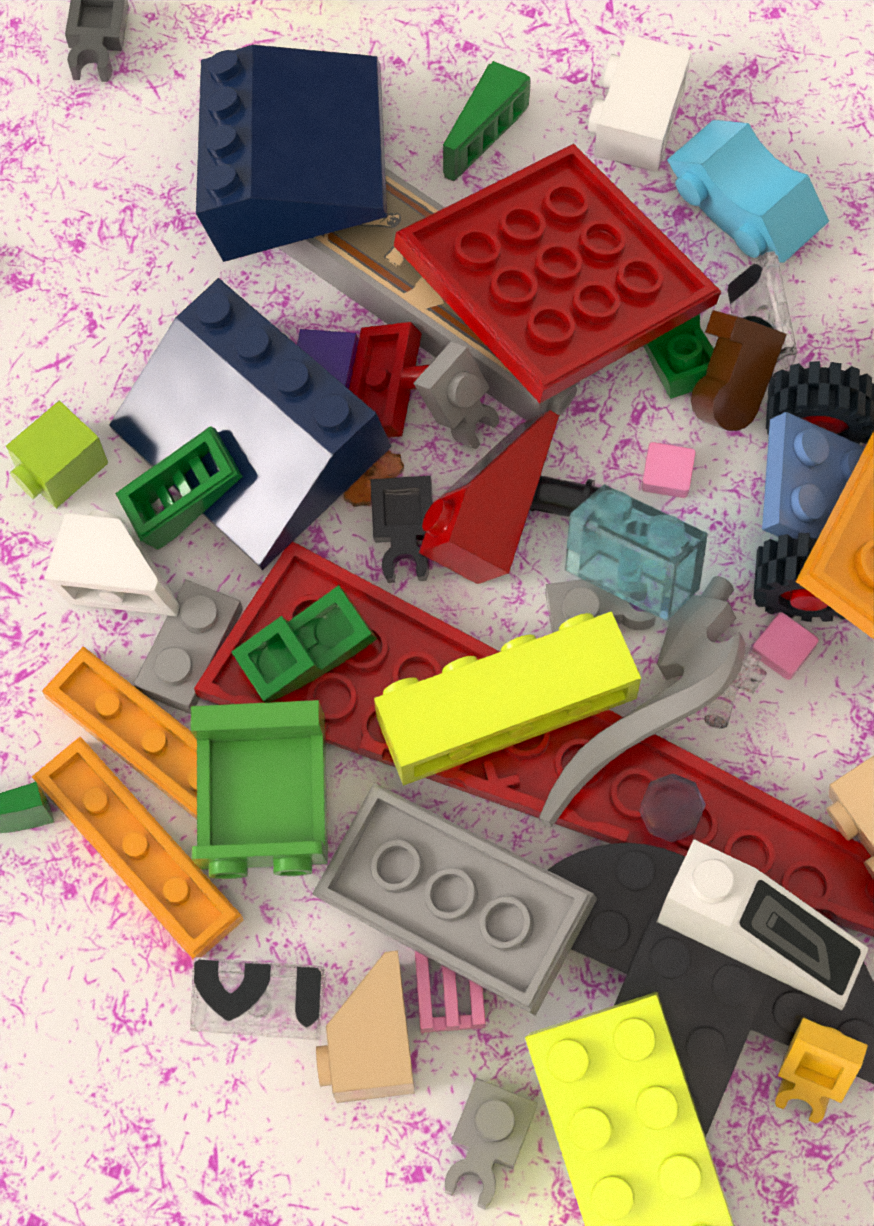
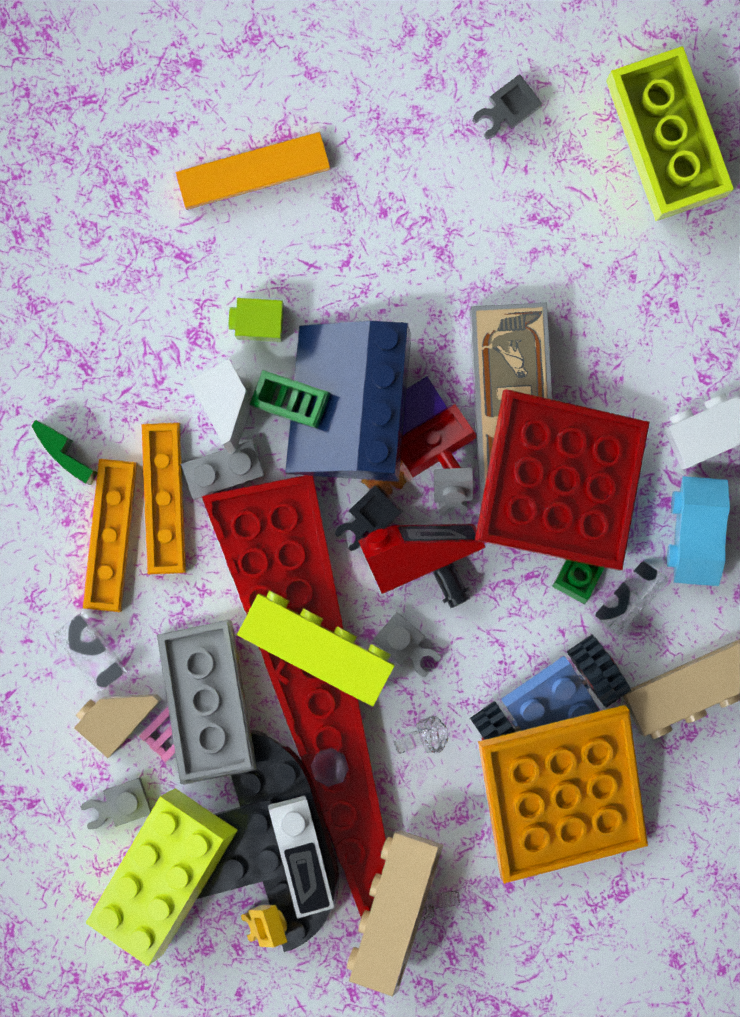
camera: 50 degrees right, 20 degrees up
(260, 788) = (178, 574): bright green panel -> none
(288, 146) = (516, 285): dark blue slope -> none
(304, 648) = (263, 531): green slope -> none
(490, 111) = (637, 358): green slope -> none
(635, 551) = (443, 645): clear light blue brick -> none
(668, 470) = (511, 617): bright pink piece -> none
(686, 652) = (408, 731): light grey piece -> none
(736, 372) = (586, 613): reddish brown leg -> none
(785, 645) = (464, 747): bright pink piece -> none

